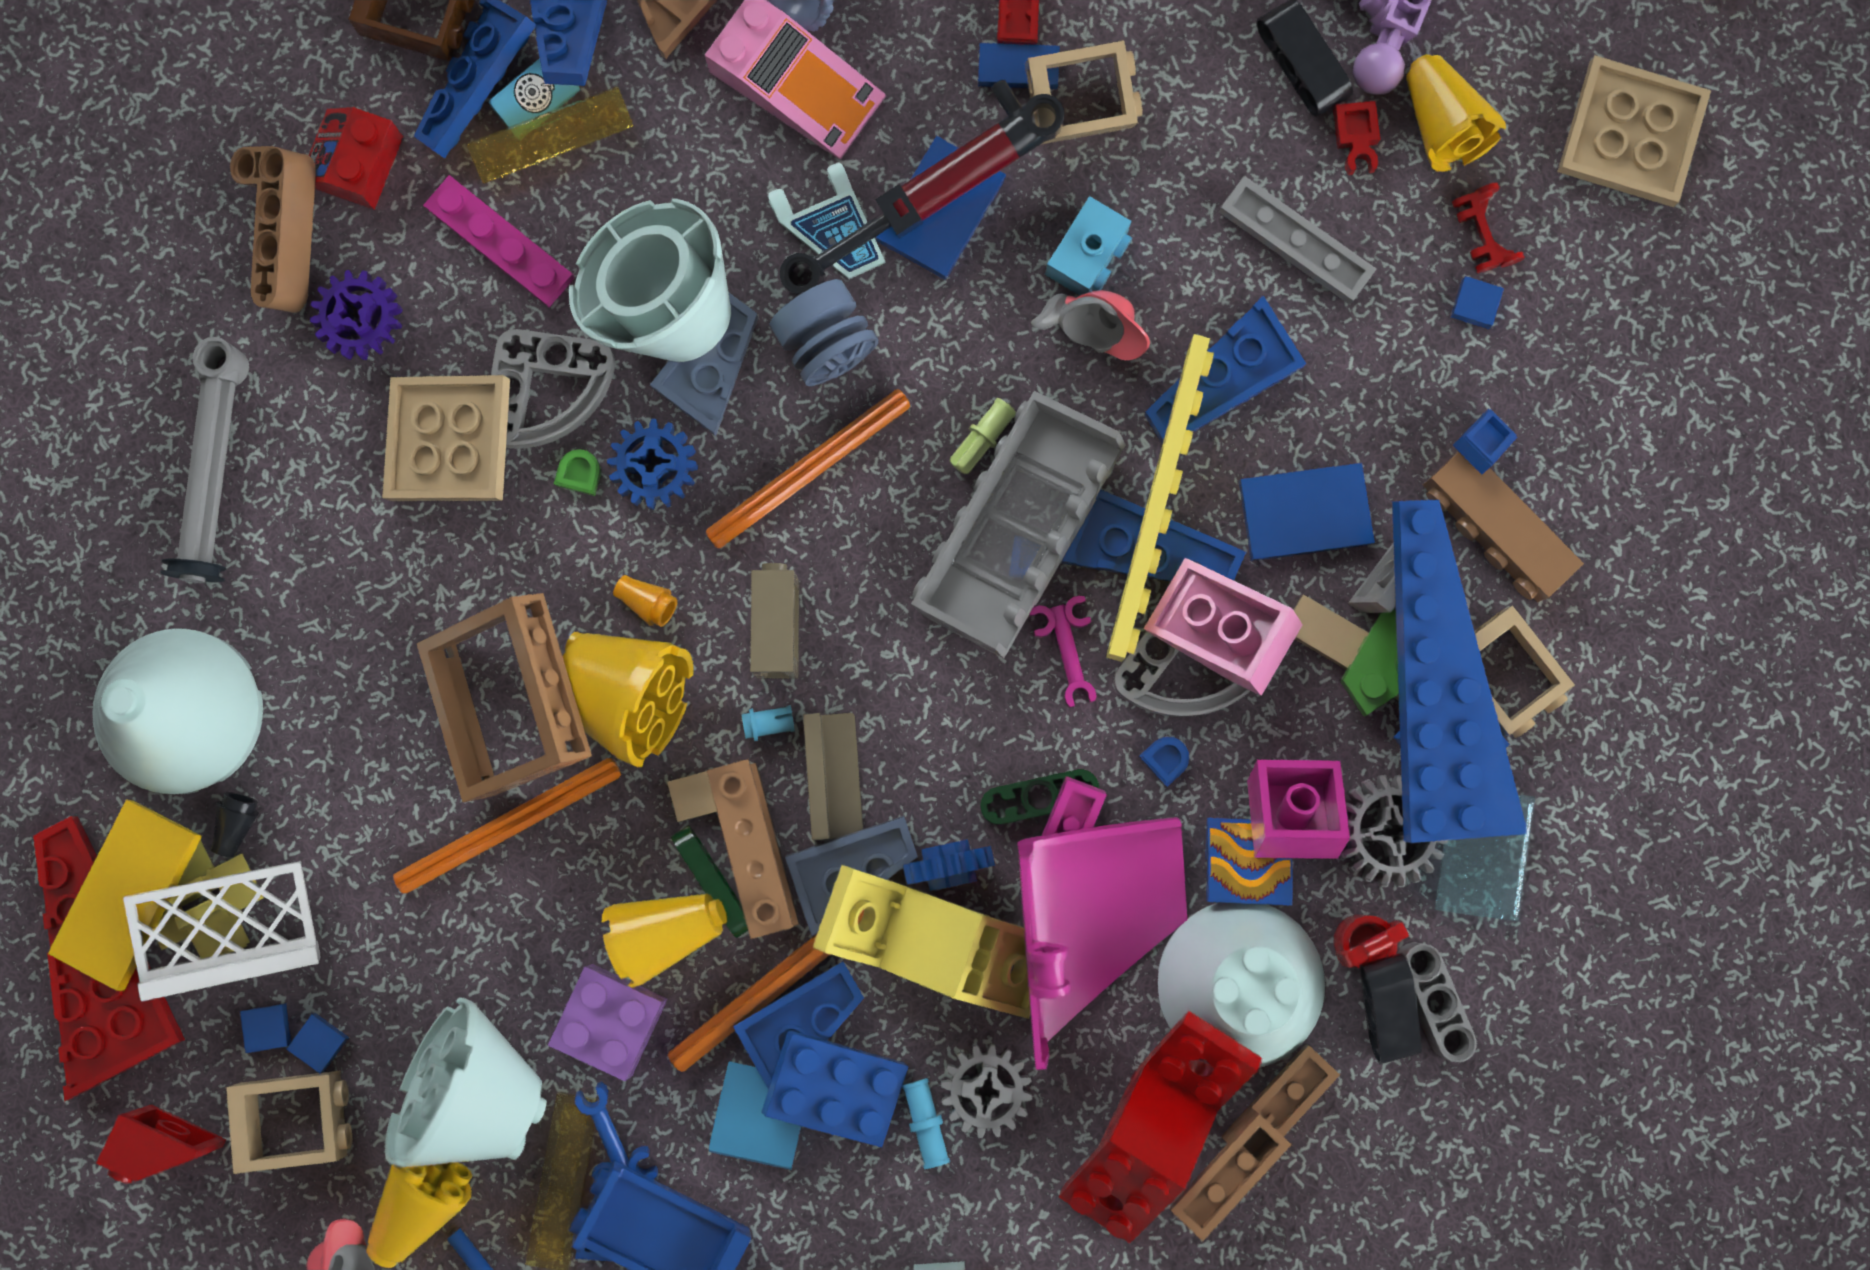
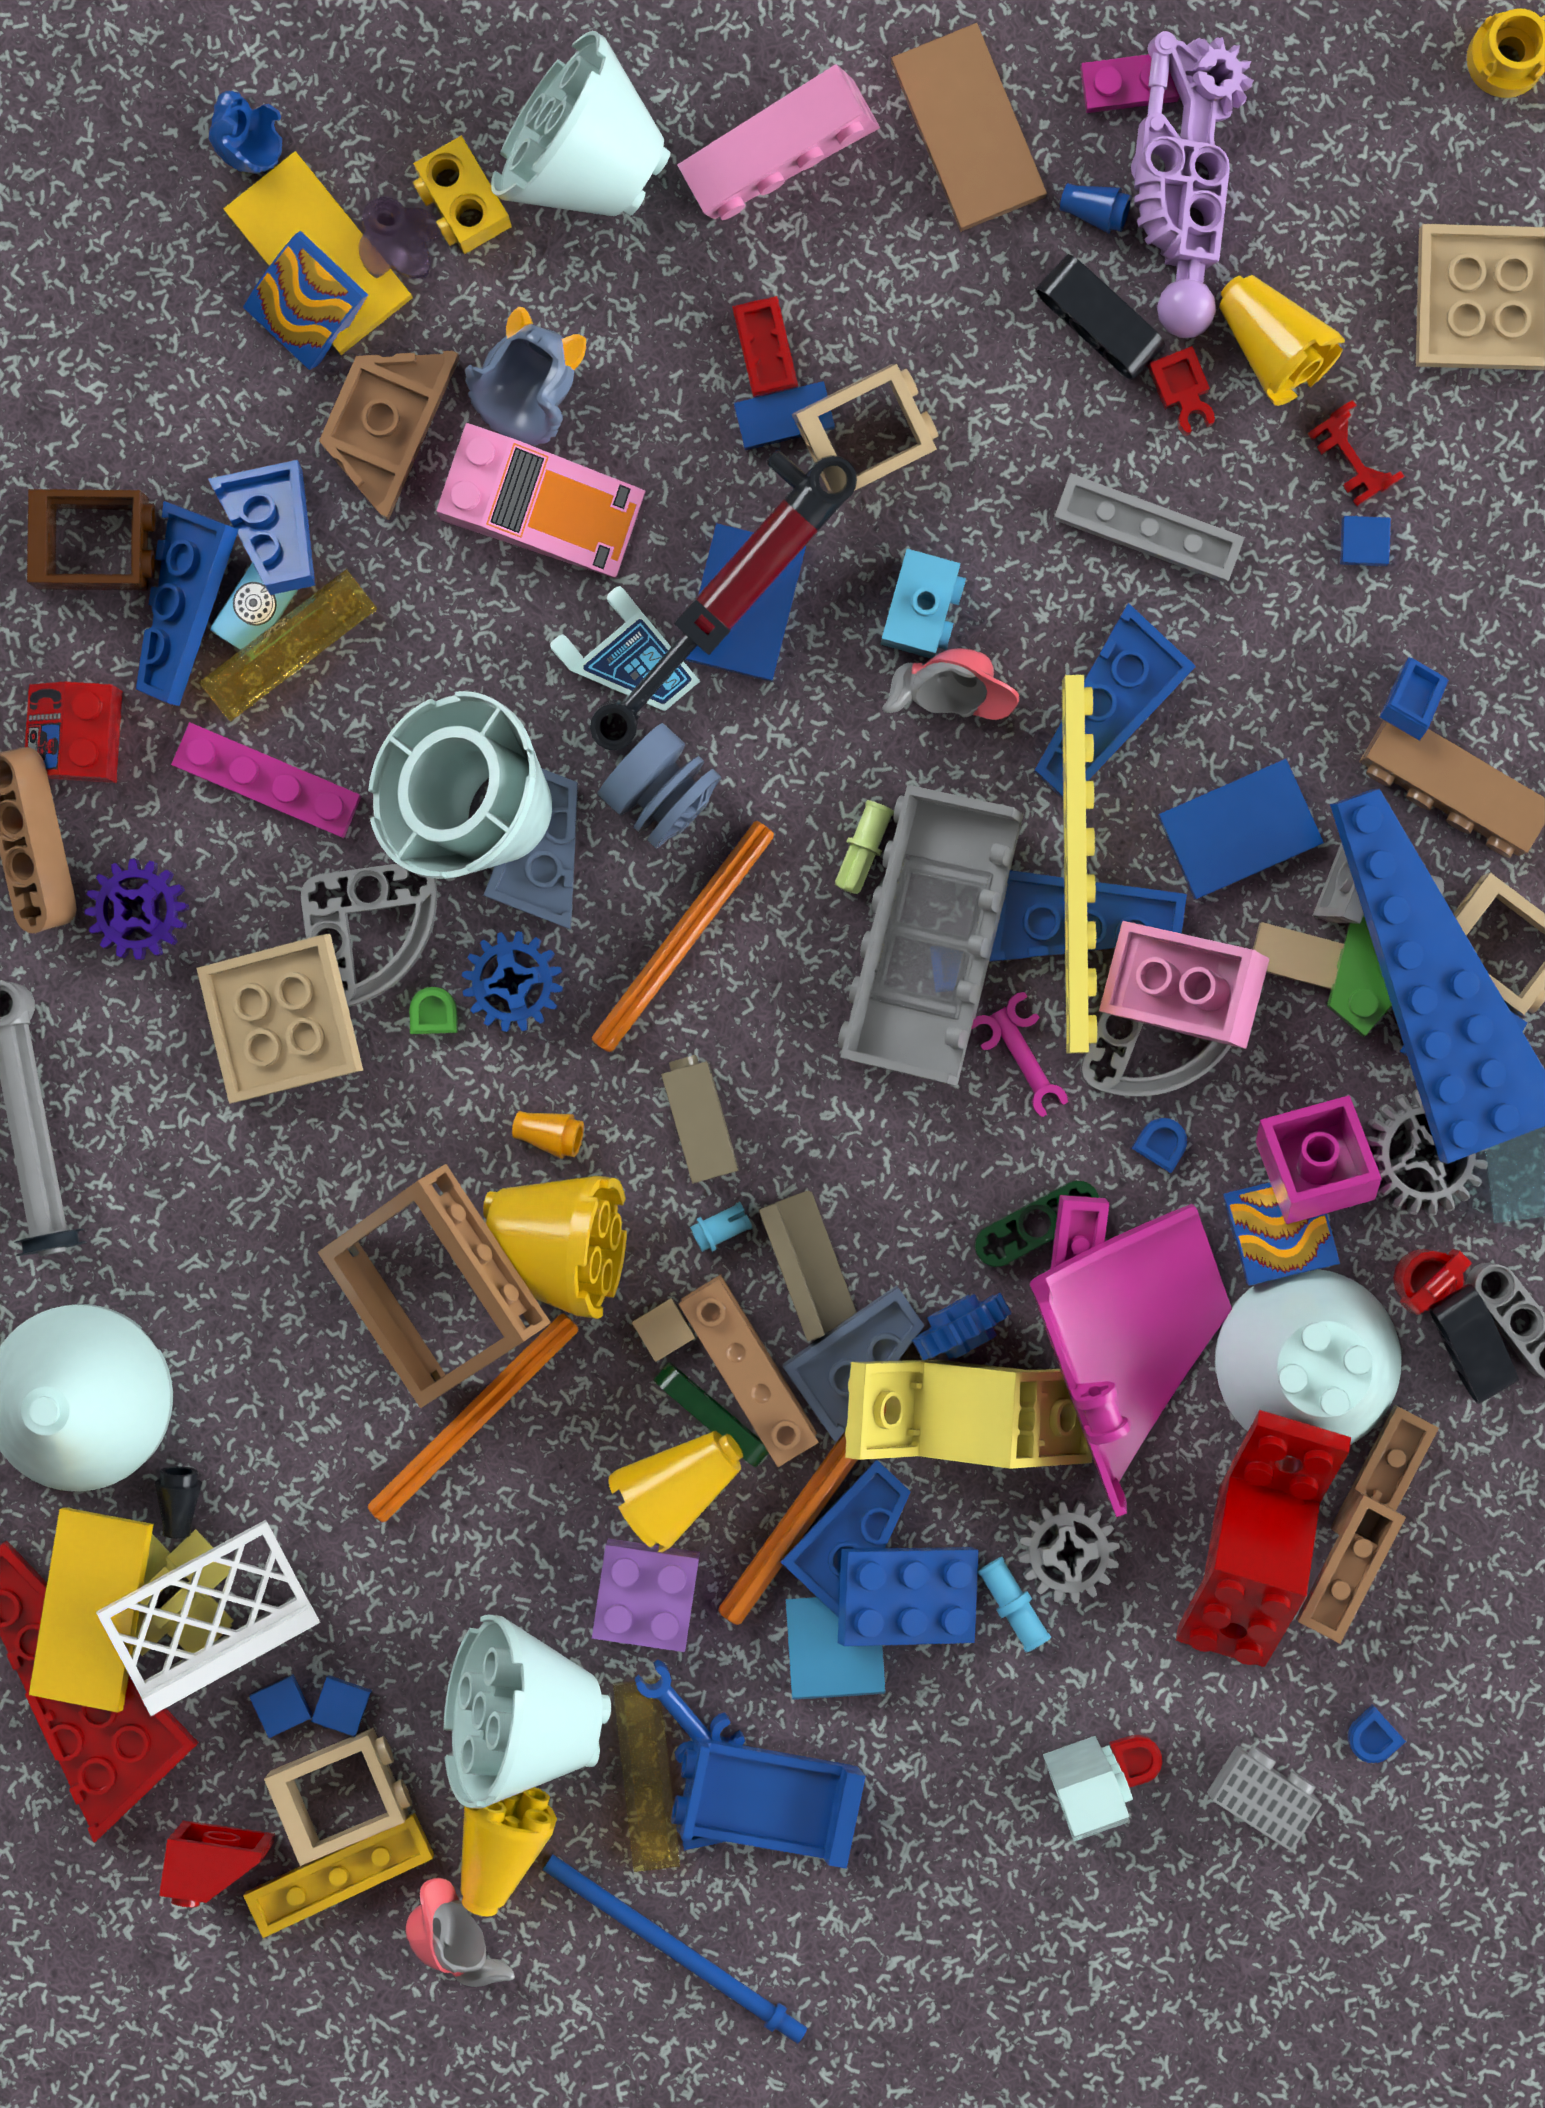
camera: 10 degrees left, 5 degrees up
(267, 1193) = (337, 1876): none -> yellow plate

